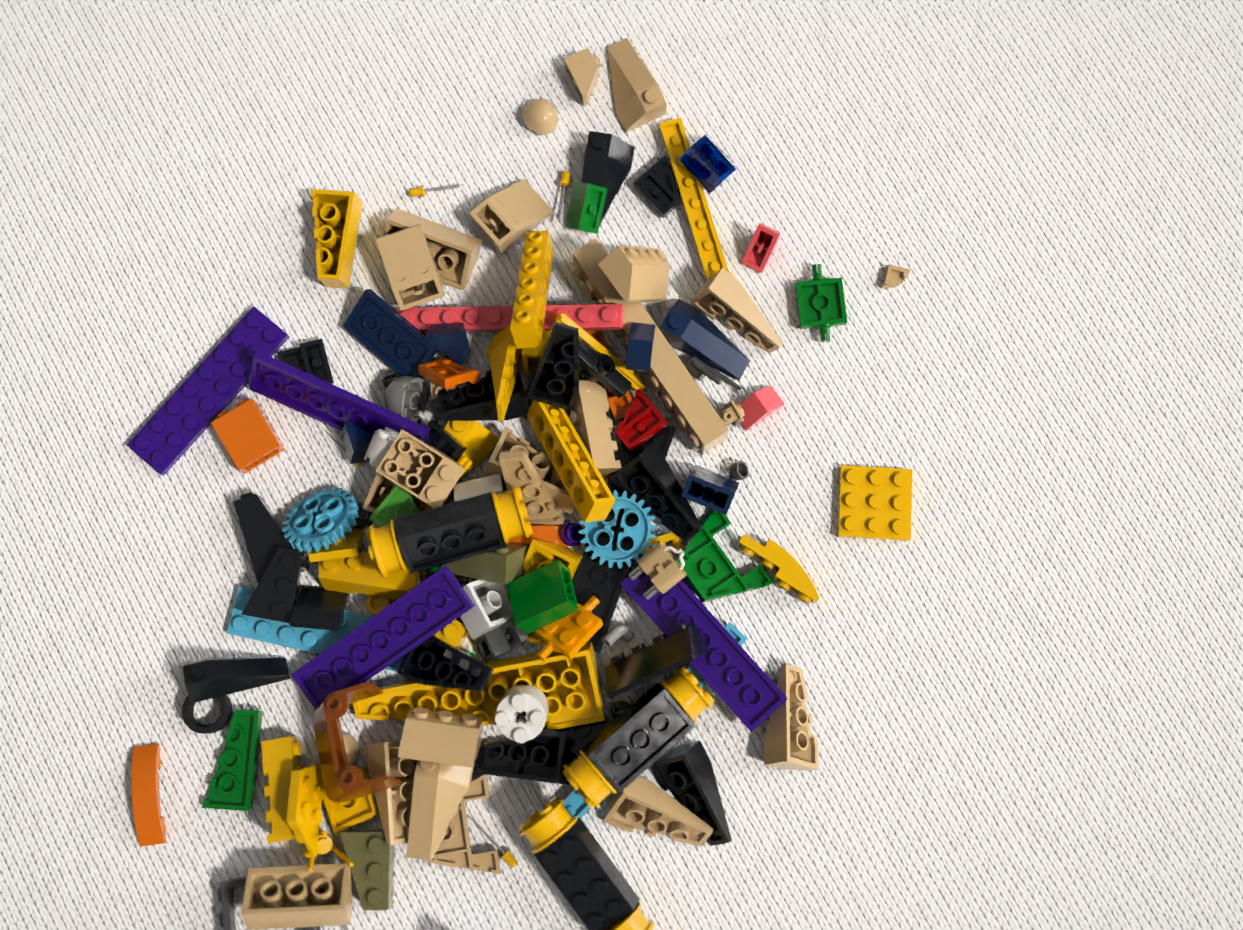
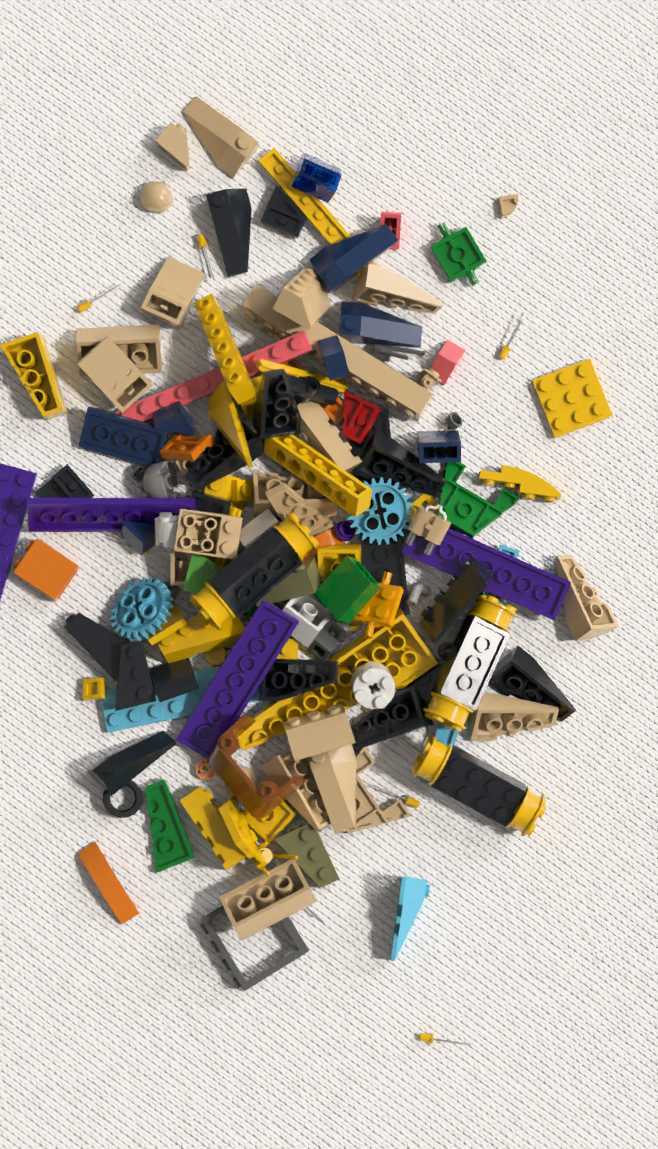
camera: 30 degrees left, 5 degrees up
(234, 581) = (93, 689): none -> yellow plate
(304, 720) = (205, 770): none -> tile
(484, 443) = (241, 490): none -> yellow plate
(586, 207) = (231, 259): green panel -> none
(701, 256) = (346, 258): none -> dark blue wedge
(822, 425) = (505, 349): none -> piece

